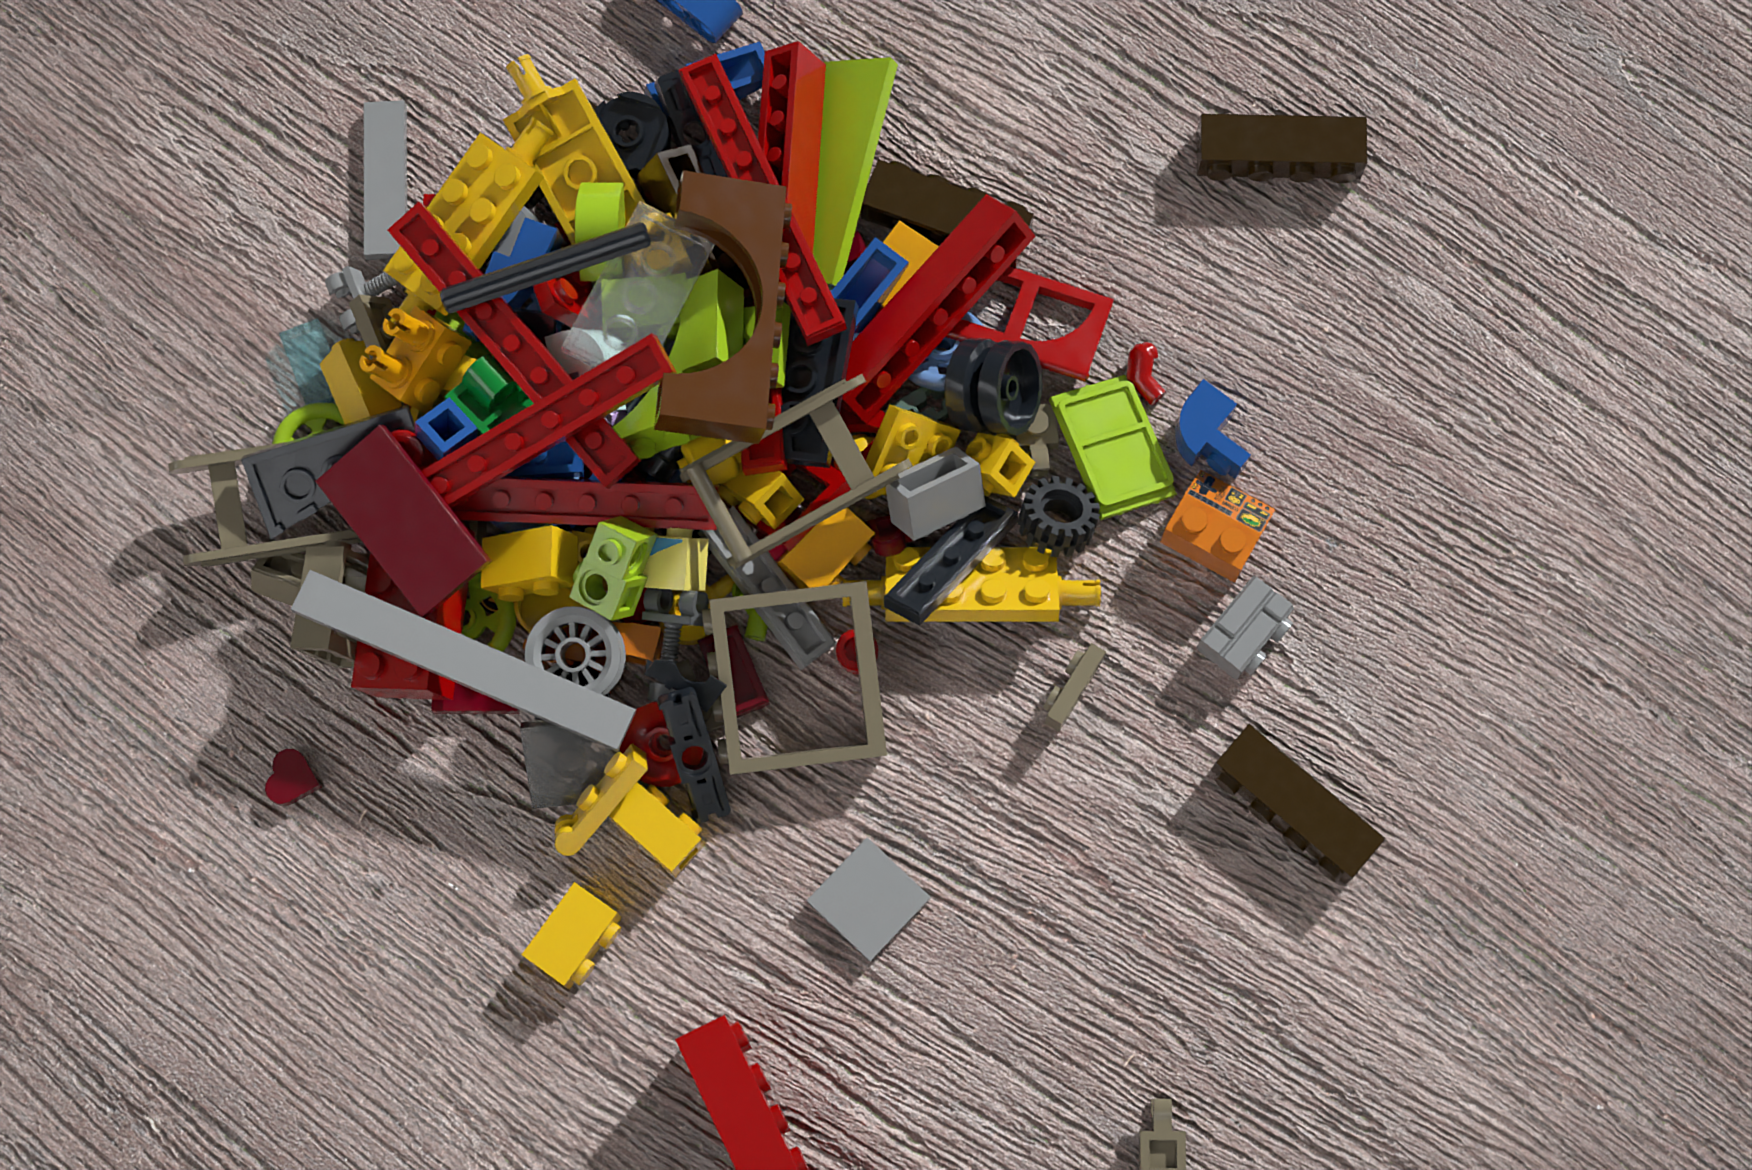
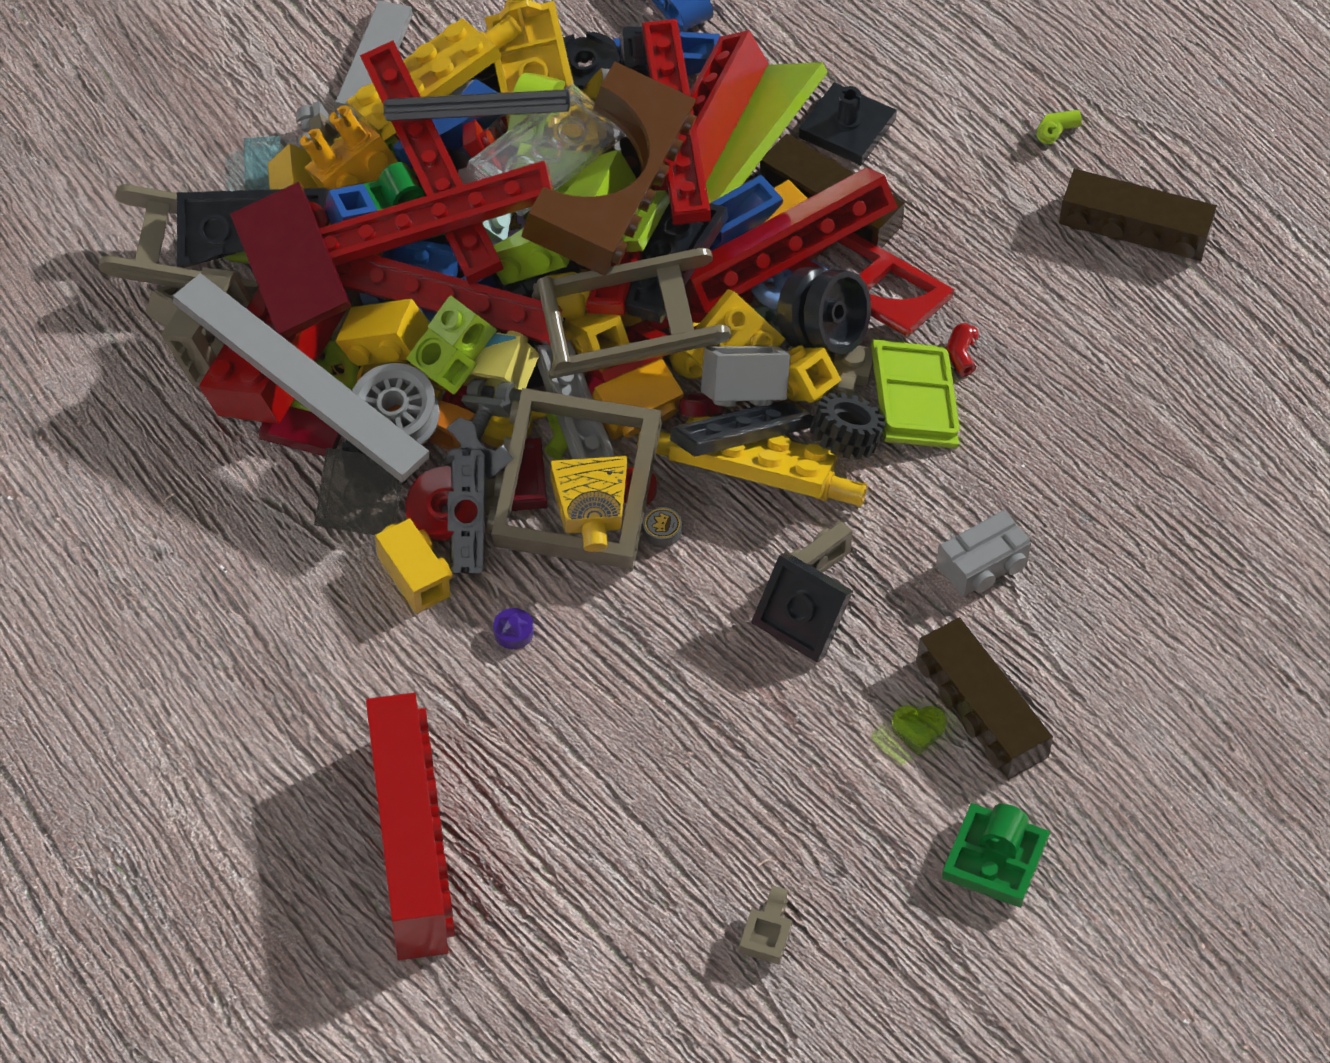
camera: 15 degrees right, 20 degrees down
(291, 778) = (121, 451): dark red tile -> none
(573, 937) = (309, 625): yellow brick -> none
(599, 801) = (369, 524): yellow plate -> none
(785, 867) = (513, 628): none -> dark purple tile
(827, 711) = (590, 497): none -> yellow torso
(868, 899) = (576, 672): light grey tile -> none
(900, 694) = (662, 526): none -> tile
(933, 113) = (847, 123): none -> black tile
(1082, 759) = (801, 606): none -> black tile
(1156, 48) = (1054, 124): none -> lime arm
(1199, 431) = (999, 399): blue brick -> none
(1217, 525) = (982, 473): orange slope -> none
(1238, 853) = (918, 726): none -> clear neon green tile
(1363, 984) = (996, 853): none -> green plate

